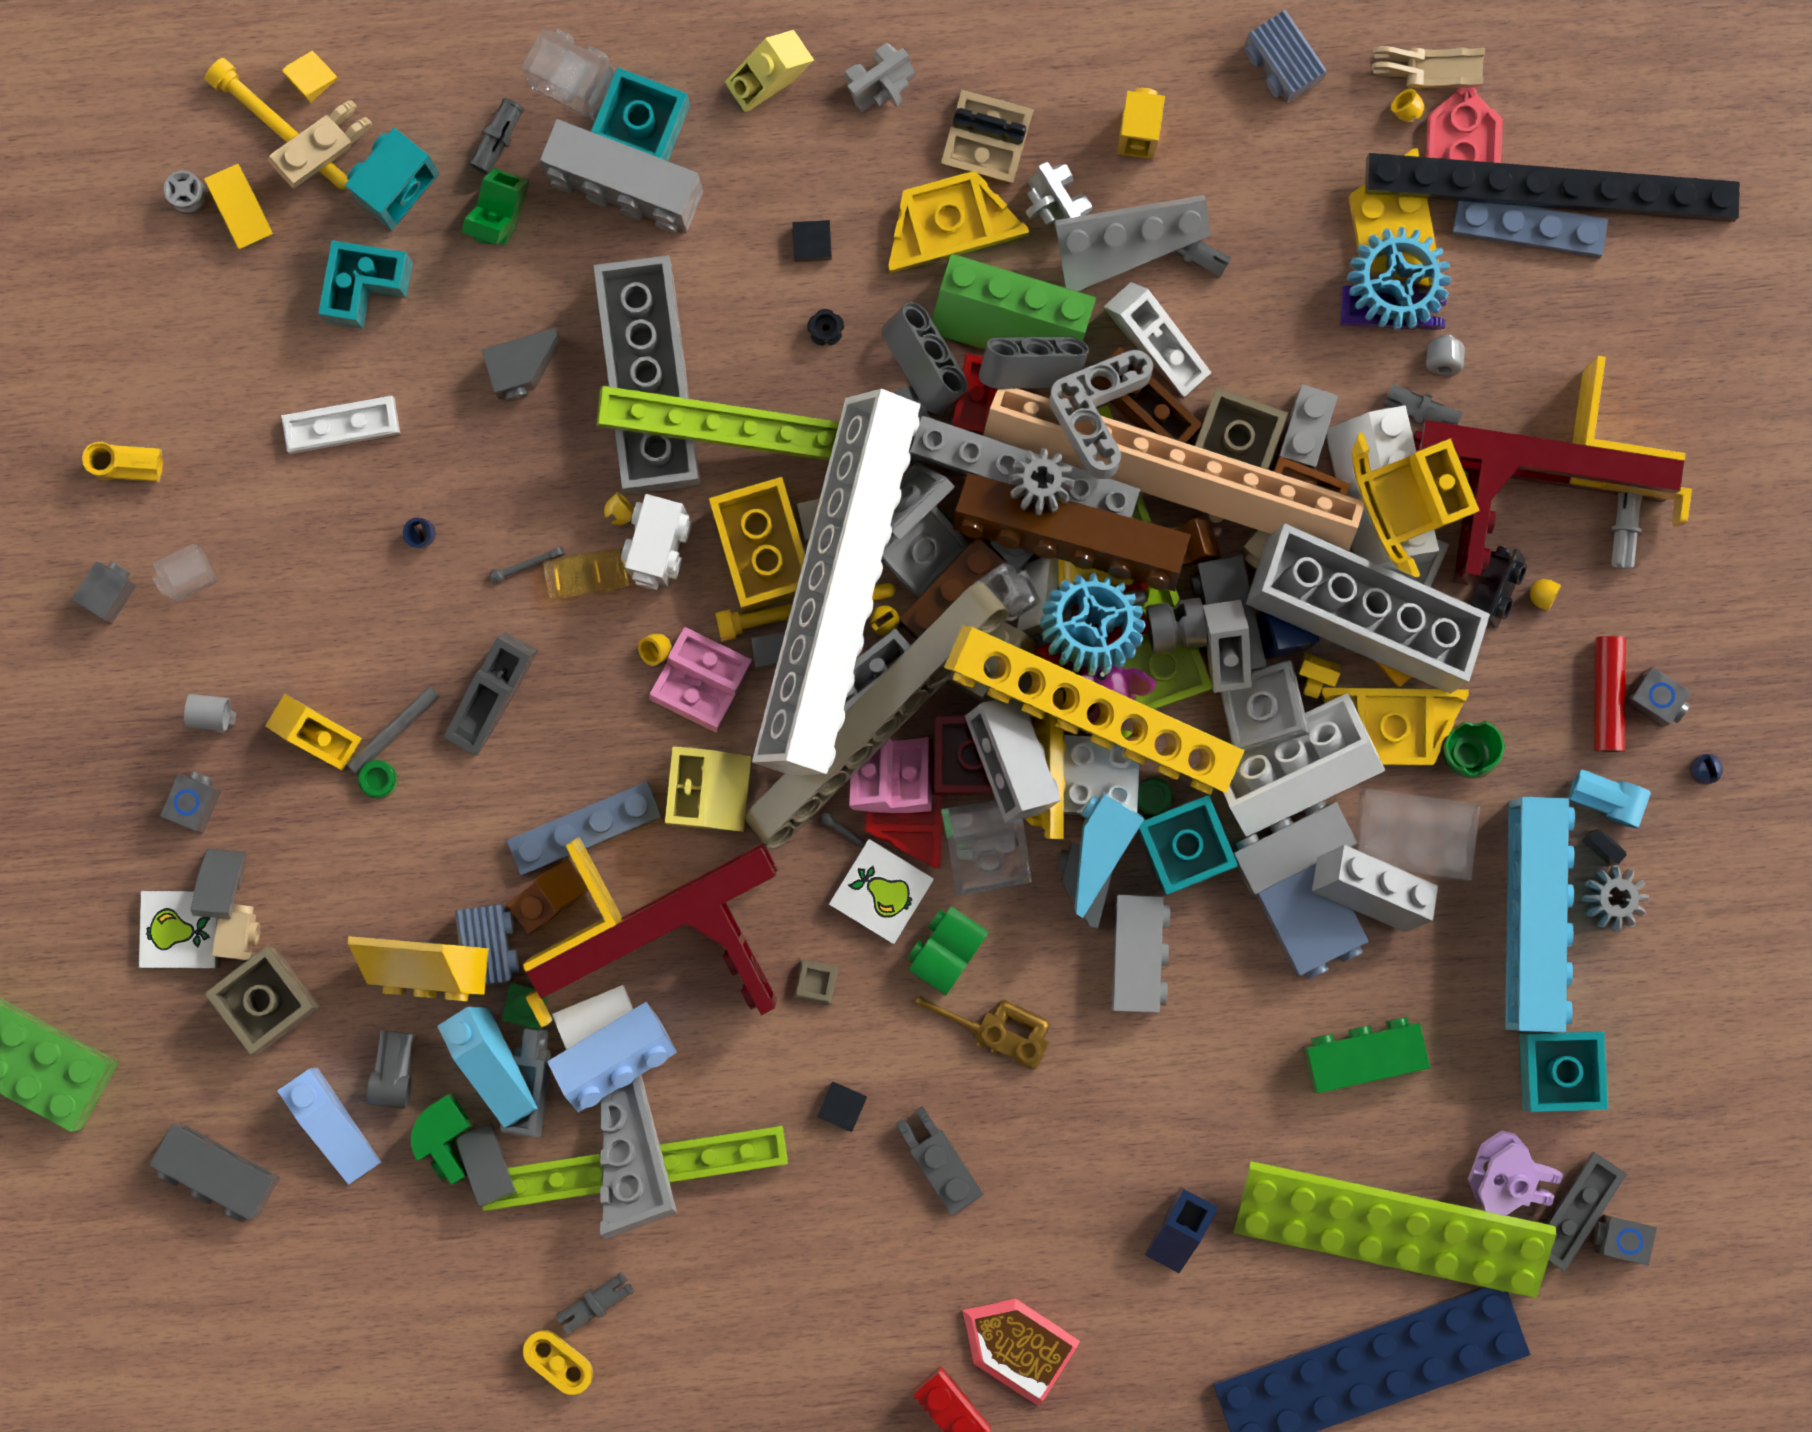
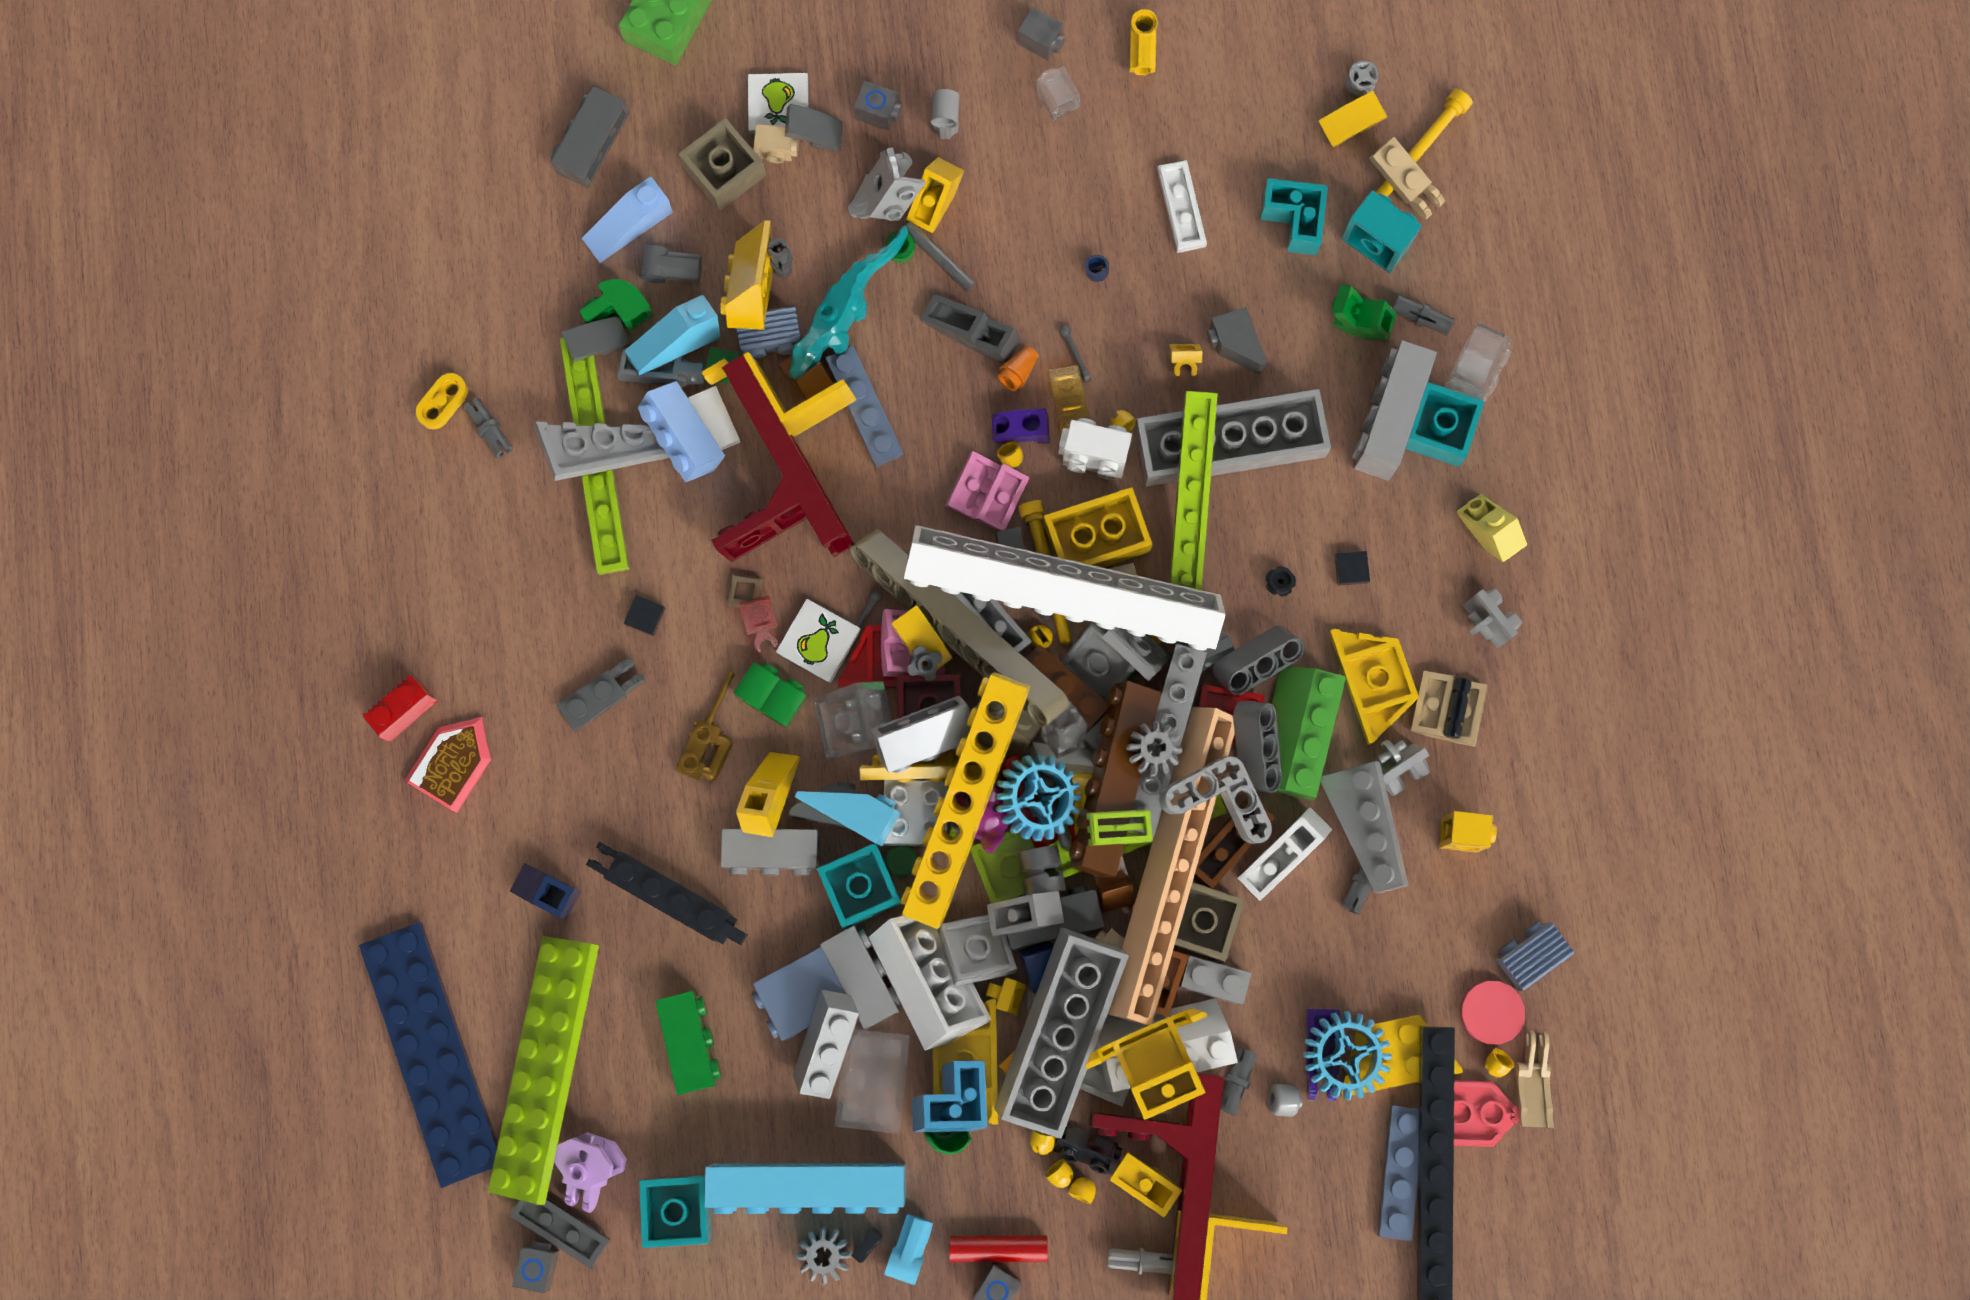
camera: 85 degrees right, 5 degrees down
(310, 75) = (1462, 169): yellow slope -> none
(315, 780) = (895, 191): none -> light grey piece
(387, 921) = (783, 257): none -> dark grey pin
(459, 855) = (840, 307): none -> teal animal
(536, 428) = (1185, 354): none -> yellow tile
(545, 635) = (1017, 369): none -> orange cone
(620, 635) = (1021, 426): none -> dark purple leg
(708, 789) = (896, 497): light yellow slope -> none
(854, 962) = (758, 619): none -> clear red plate
(891, 761) = (917, 631): none -> yellow slope
(916, 766) = (915, 663): none -> dark grey plate
(1072, 953) = (766, 794): none -> yellow slope
(1135, 555) = (1094, 829): none -> lime tile
(1191, 1077) = (668, 896): none -> black hinge
(1348, 109) = (1492, 1012): none -> coral tile
(1447, 728) = (961, 1104): none -> dark azure brick
(1491, 640) = (1042, 1142): none -> yellow hinge
(1525, 620) = (1060, 1174): none -> yellow hinge
(1541, 518) = (1146, 1184): none -> yellow slope

